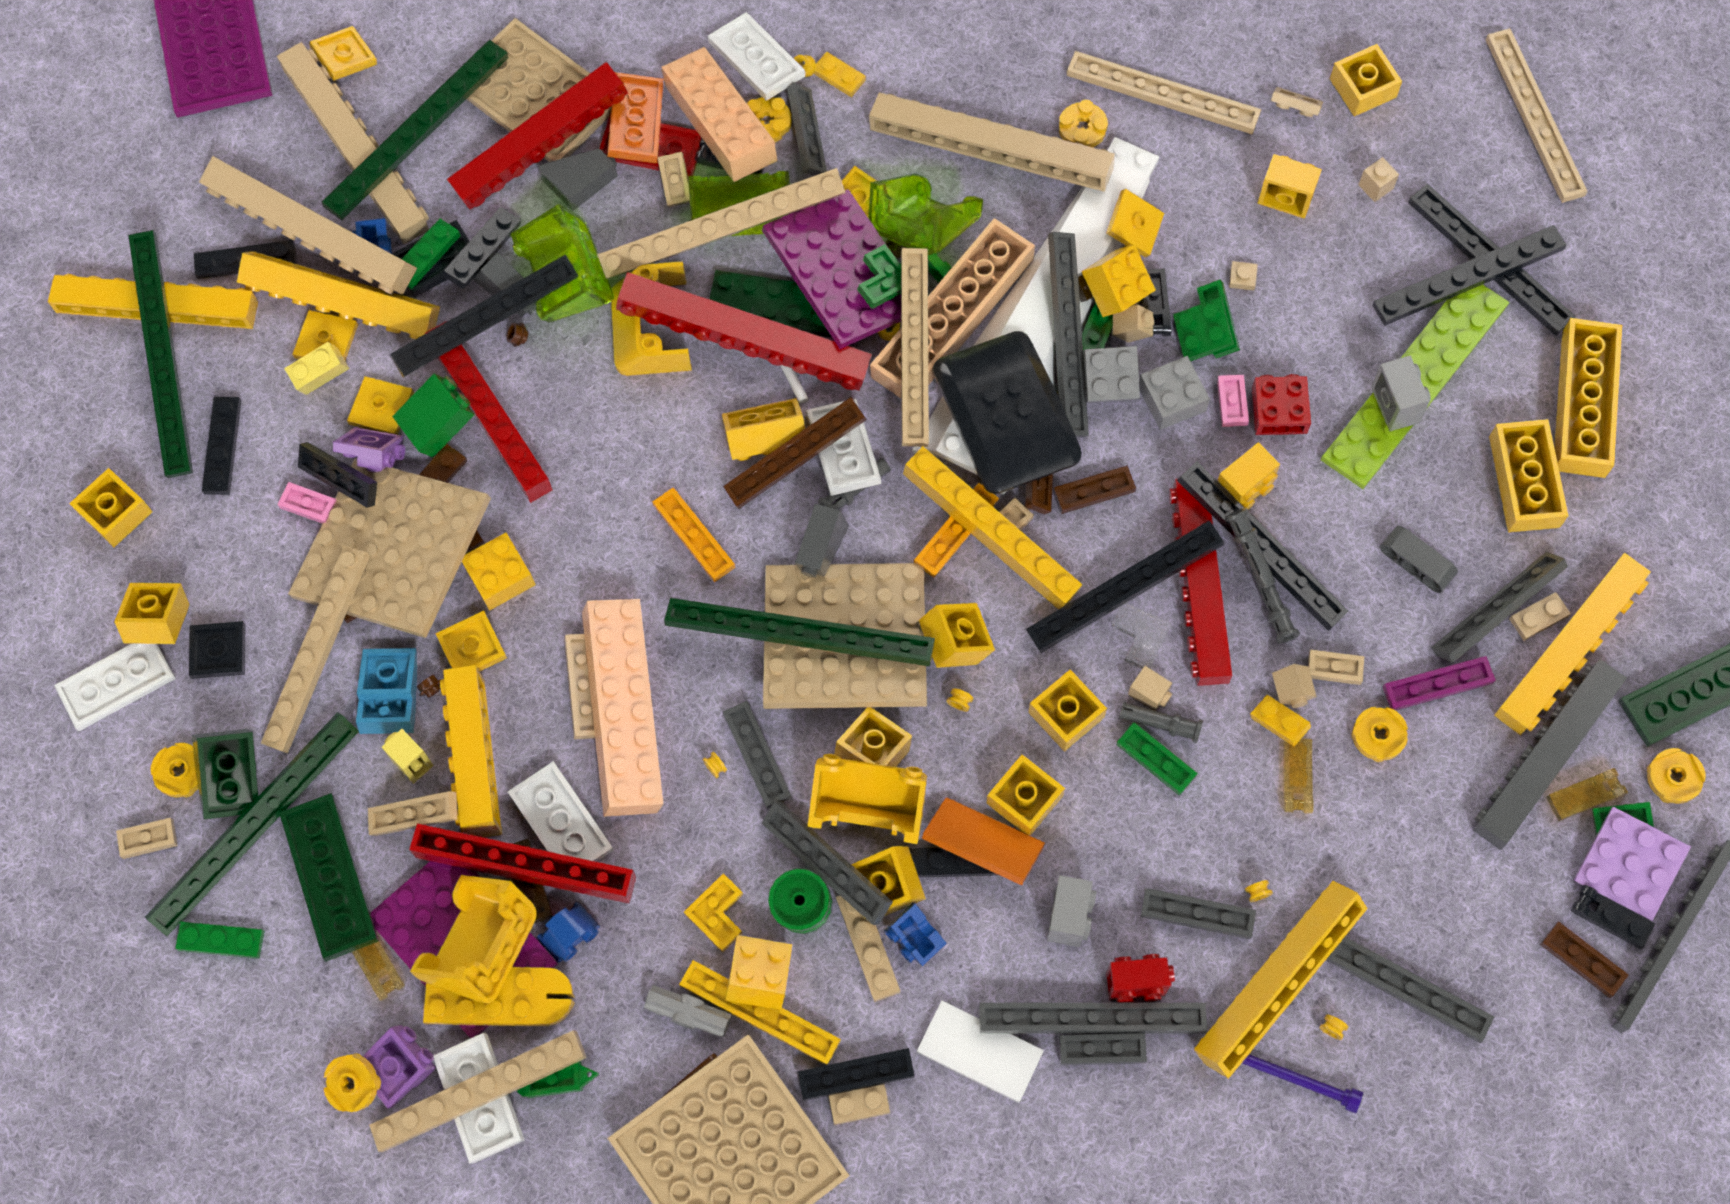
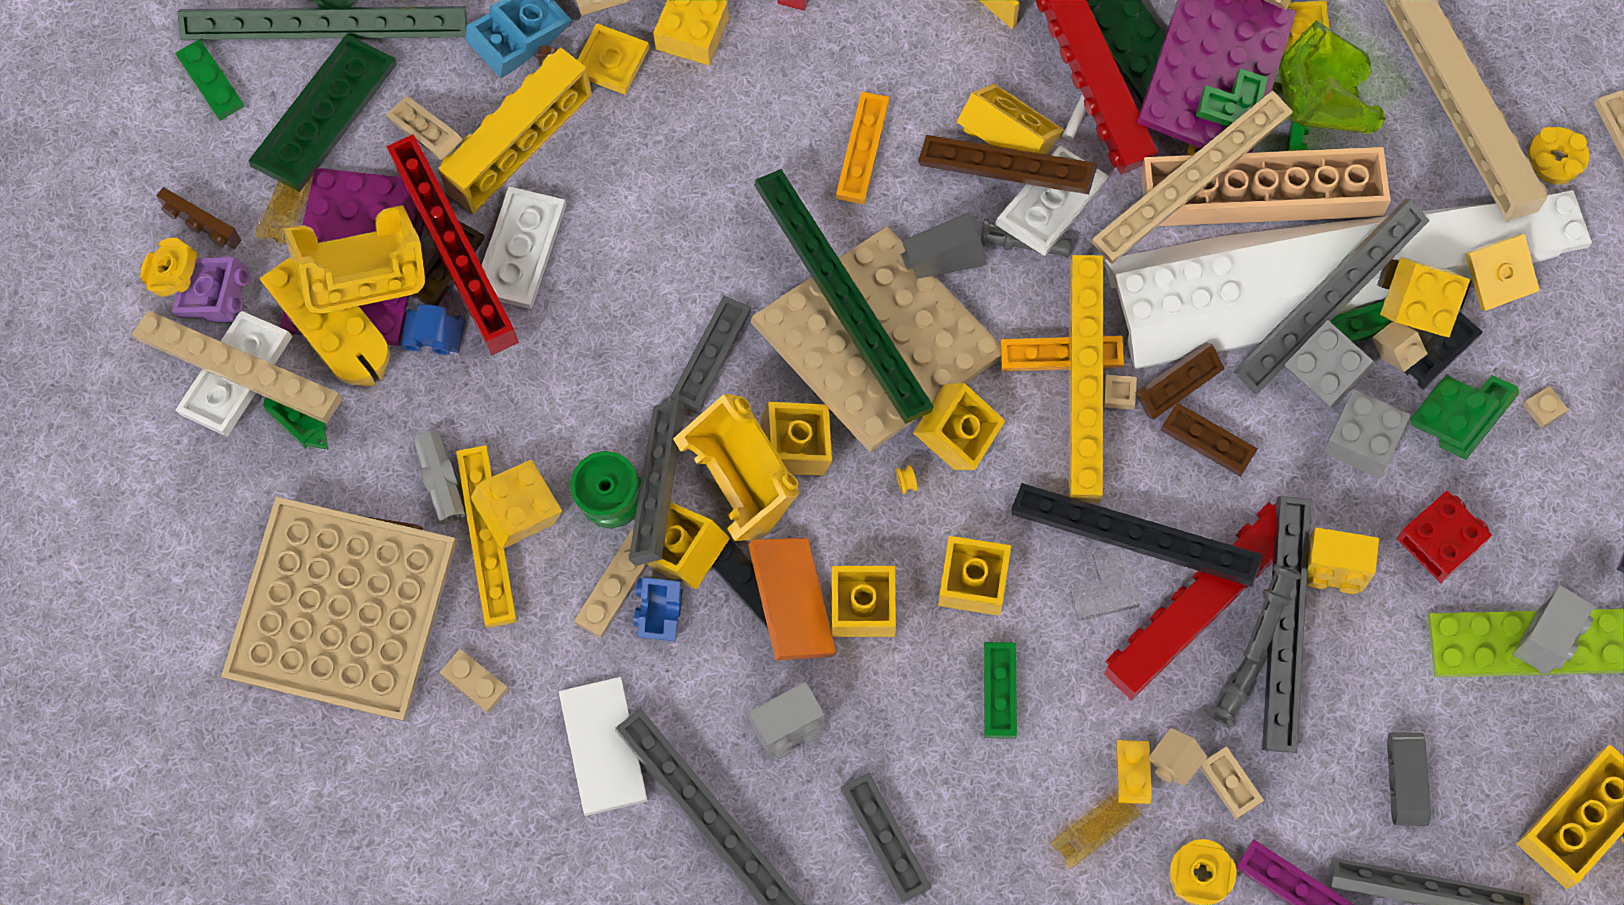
camera: 50 degrees right, 0 degrees up
(330, 1032) = (198, 219): none -> reddish brown plate
(407, 755) = (470, 85): light yellow brick -> none
(579, 687) = (650, 170): tan plate -> none
(622, 707) = (656, 212): light nougat brick -> none
(709, 910) = (543, 424): yellow plate -> none
(714, 764) = (672, 327): yellow bush -> none
(856, 1074) = (497, 657): black plate -> none
(1007, 412) = (1205, 303): black wedge -> none
(1103, 1049) = (690, 849): dark grey plate -> none
(1139, 978) = (782, 836): red brick -> none
(1151, 689) = (1061, 633): tan brick -> none
(1174, 724) = (1045, 680): dark grey pin -> none
(1232, 400) = (1409, 492): bright pink plate -> none
(1258, 891) = (952, 876): yellow bush -> none

